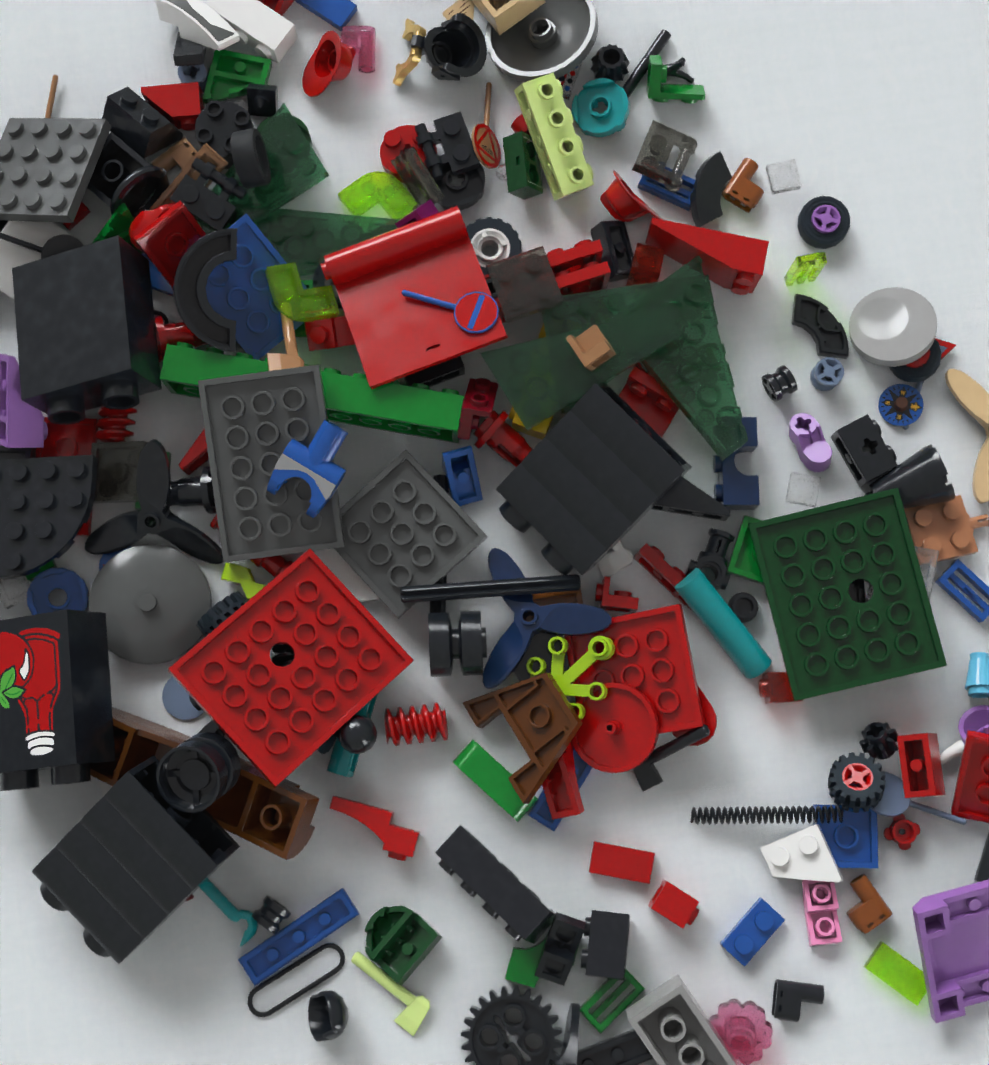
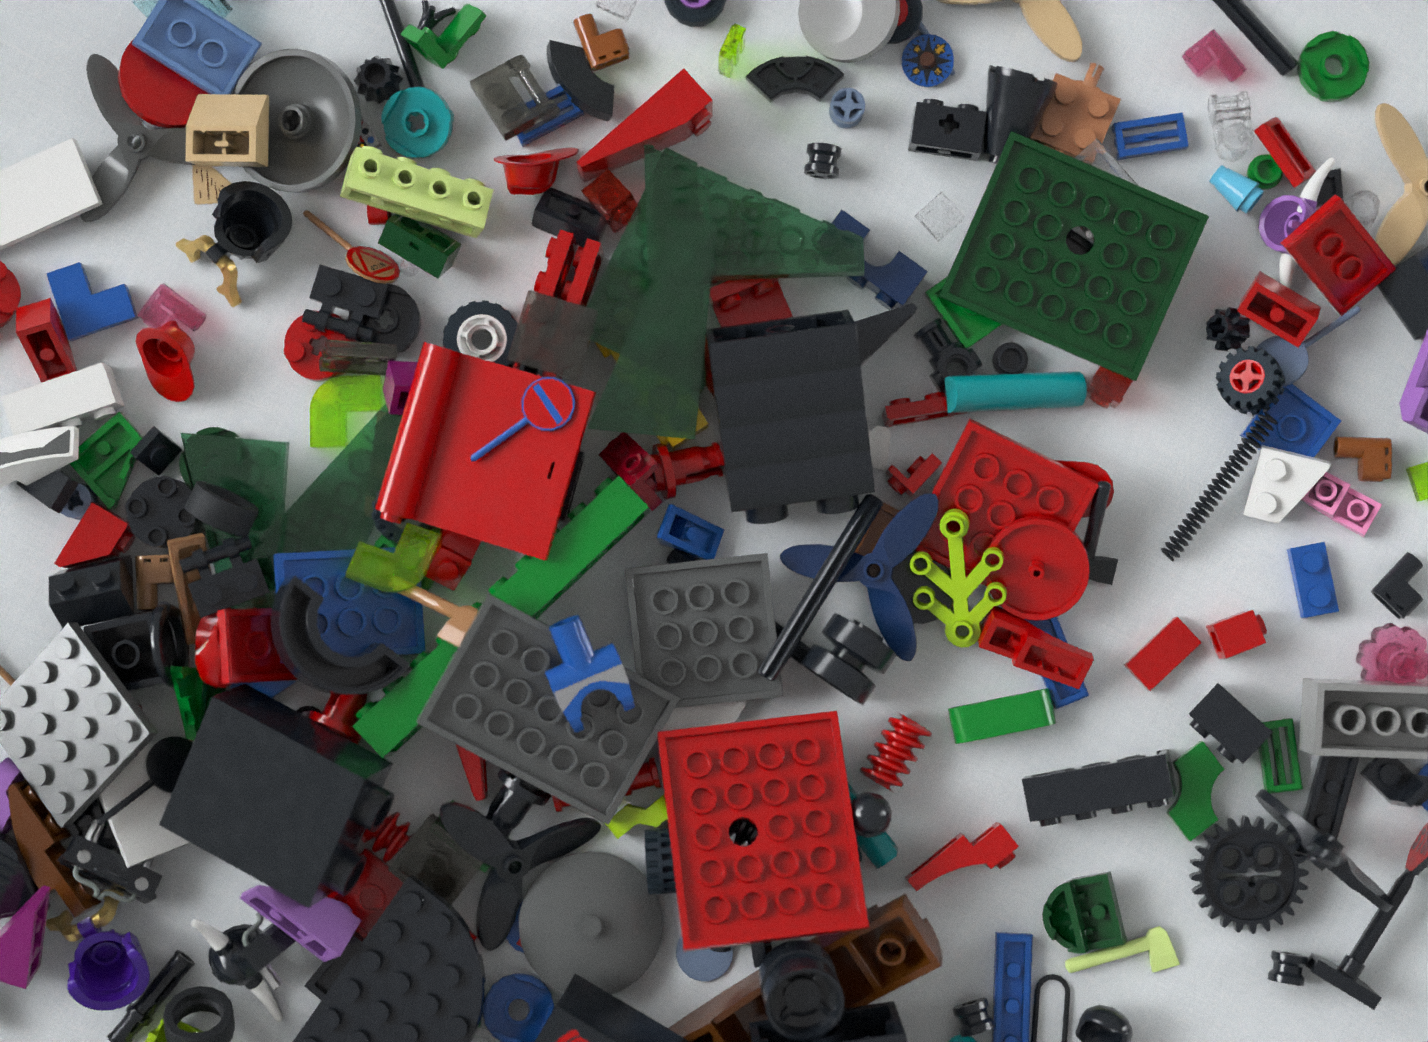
camera: 55 degrees left, 5 degrees up
(540, 721) = (983, 633): reddish brown wing -> none
(560, 948) = (1201, 770): black slope -> none
(591, 347) = (666, 319): medium nougat panel -> none
(810, 442) = (901, 175): medium lavender piece -> none
(911, 831) = (1332, 367): red plate -> none

